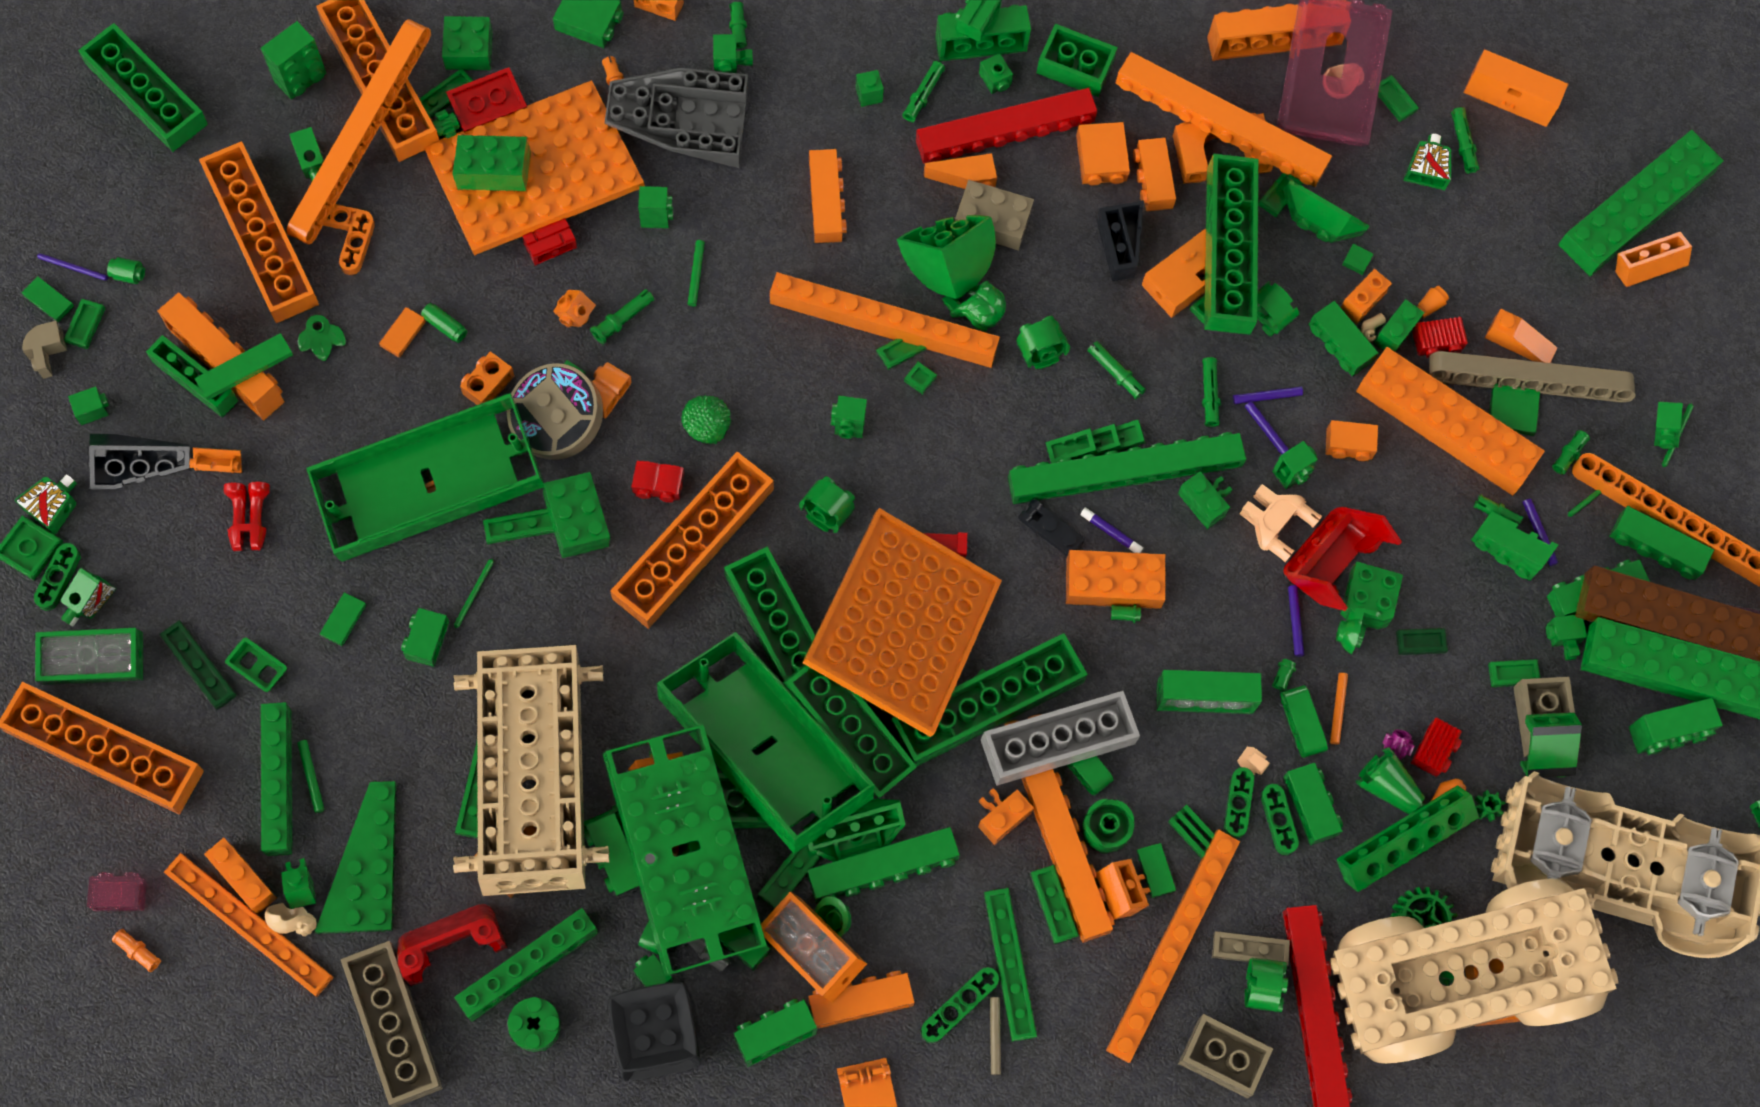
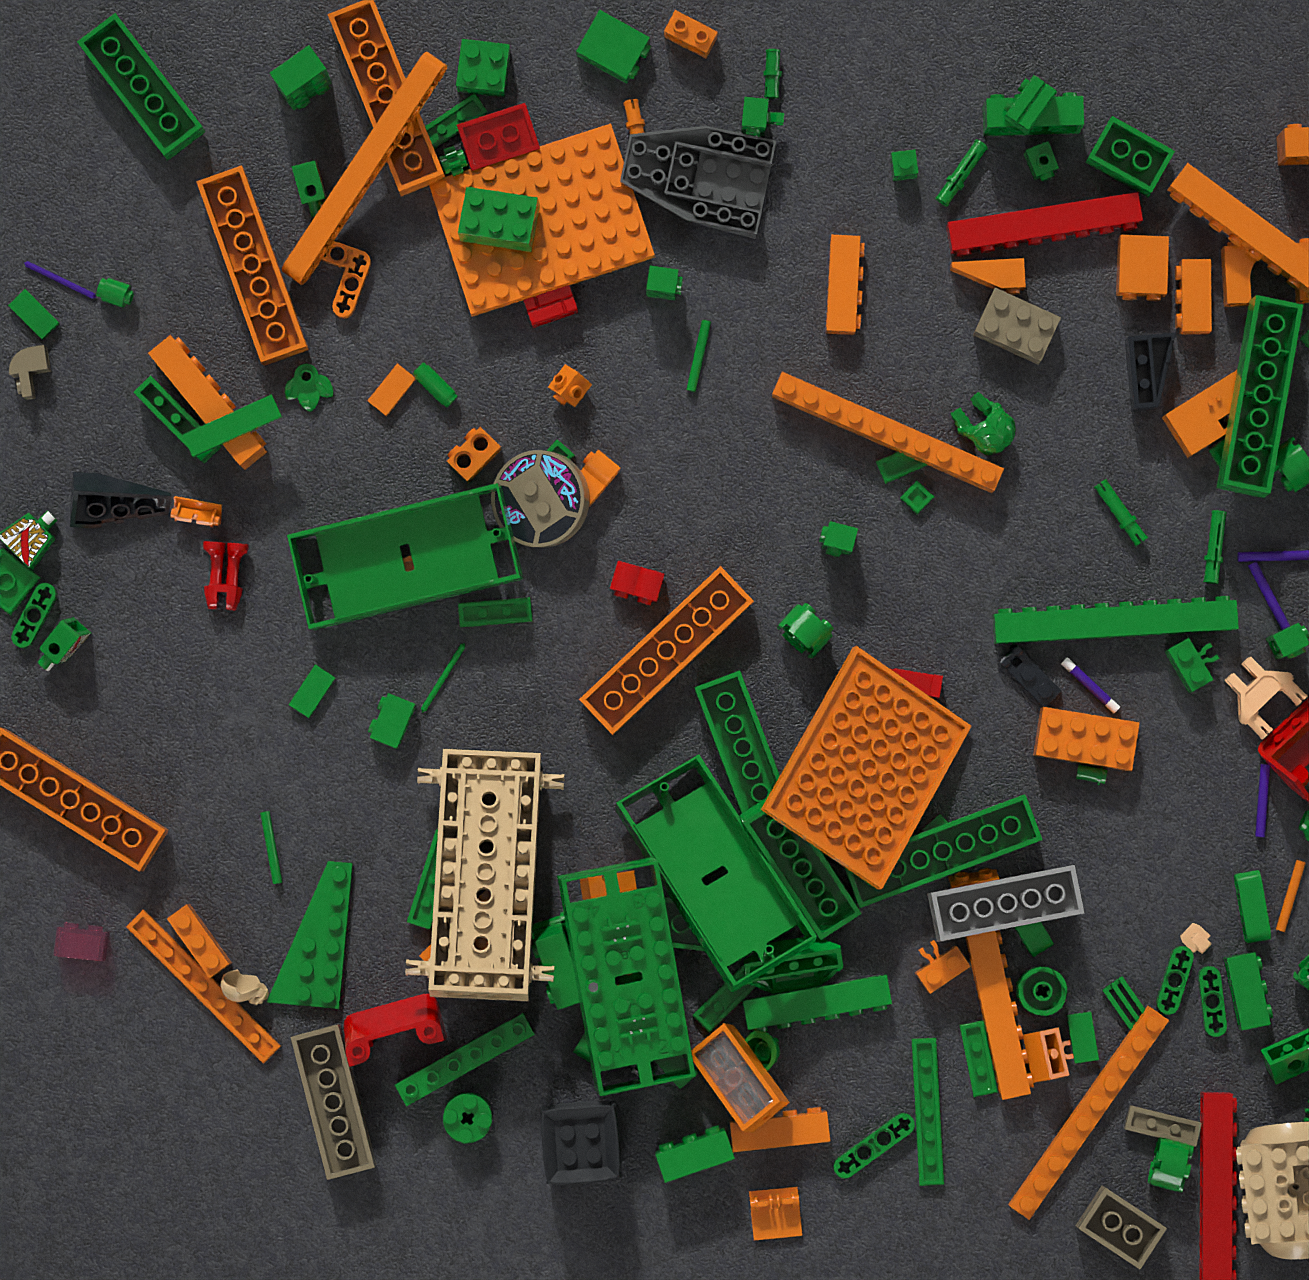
camera: 15 degrees right, 15 degrees up
(84, 323) = (70, 345): green tile -> none
(89, 405) = (72, 438): green brick -> none
(89, 656) = (64, 704): clear brick -> none
(136, 950) = (97, 1000): orange pin -> none
(198, 665) = (168, 722): dark green tile -> none
(264, 660) = (219, 738): green piece -> none
(276, 779) = (238, 849): green brick -> none
(298, 885) = (253, 956): green brick -> none
(576, 515) = (551, 611): green brick -> none
(614, 322) = (608, 404): green pin -> none
(650, 971) = (582, 1081): green brick -> none
(706, 419) = (692, 522): green hair -> none
(950, 254) = (965, 368): green brick -> none
(995, 1038) = (904, 1178): dark tan bar -> none
(1042, 343) = (1047, 478): green brick -> none
(1096, 441) = (1087, 589): green slope -> none
(1208, 691) = (1161, 868): green brick -> none
(1284, 673) = (1240, 856): green pin -> none

